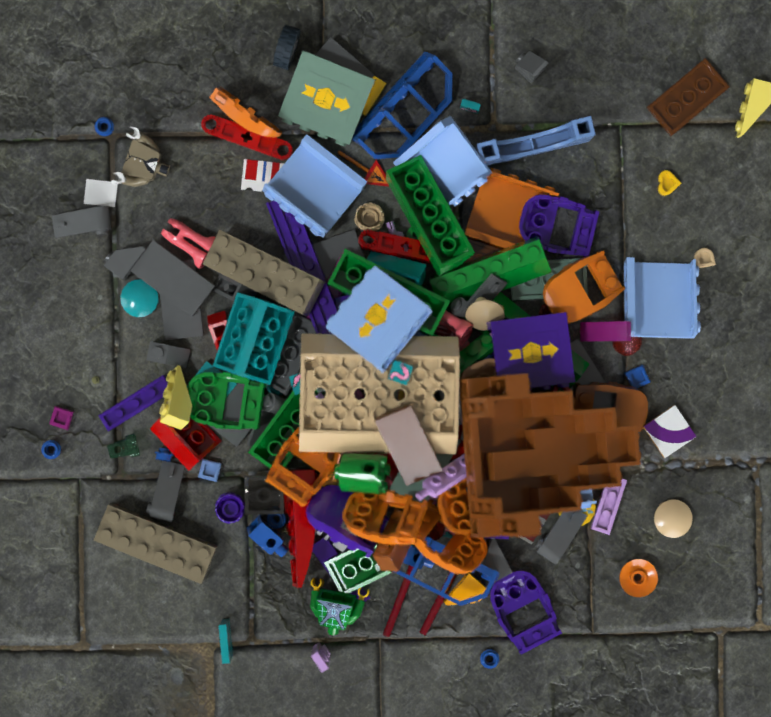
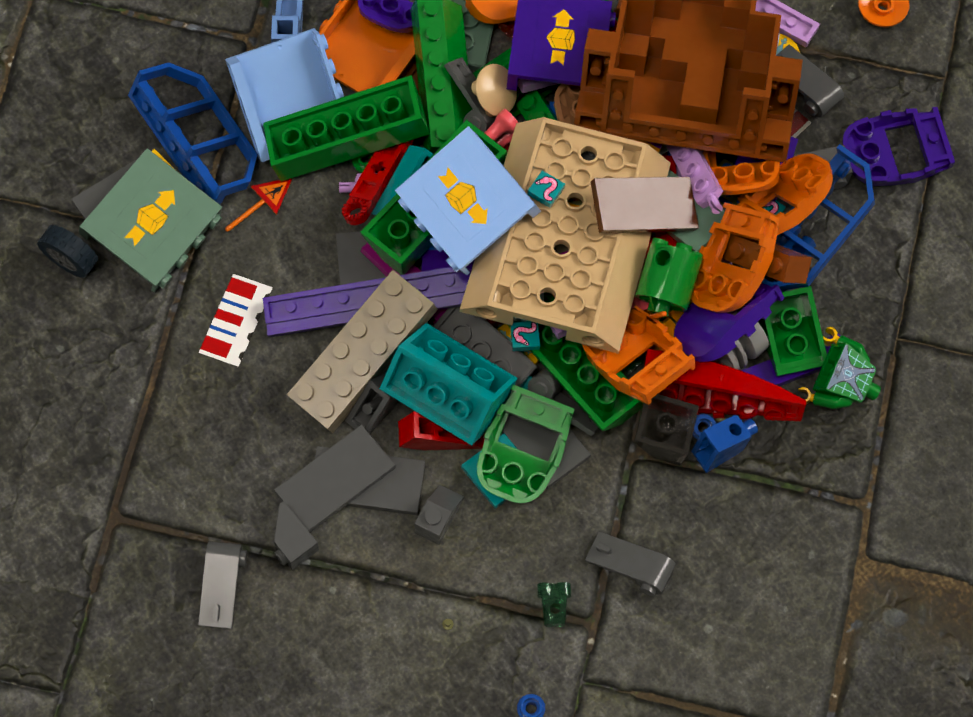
camera: 75 degrees left, 20 degrees down
(61, 417) = (489, 683): magenta tile -> none
(100, 193) = (186, 552): white sticker -> none
(104, 120) = (91, 515): blue plate -> none
(134, 404) = (495, 576): dark purple tile -> none
(139, 298) = (349, 534): teal dish -> none
(142, 161) = (160, 479): dark tan torso -> none
(155, 543) = (699, 592): dark tan brick -> none
(163, 454) = (577, 554): blue plate -> none
(177, 402) = (508, 509): light yellow slope -> none
(179, 241) = (284, 459): coral piece -> none
(189, 443) = (558, 517): red slope -> none
(209, 470) = (614, 499): medium blue tile -> none
(225, 641) = (858, 527): teal tile -> none
(230, 507) = (673, 481): dark purple hair -> none
(233, 133) = (158, 352): red piece -> none
(243, 116) = (135, 330): orange slope -> none
(314, 187) = (263, 264): light blue panel -> none
(321, 656) = (907, 402): lavender plate -> none
(369, 217) = (324, 209): tan hair -> none
(397, 605) = (855, 302): dark red bar -> none
(434, 610) = (861, 250): dark red bar -> none
(466, 588) = (851, 201): light orange slope -> none
(470, 106) = (217, 55): teal tile -> none
(493, 663) = (957, 201): blue plate -> none

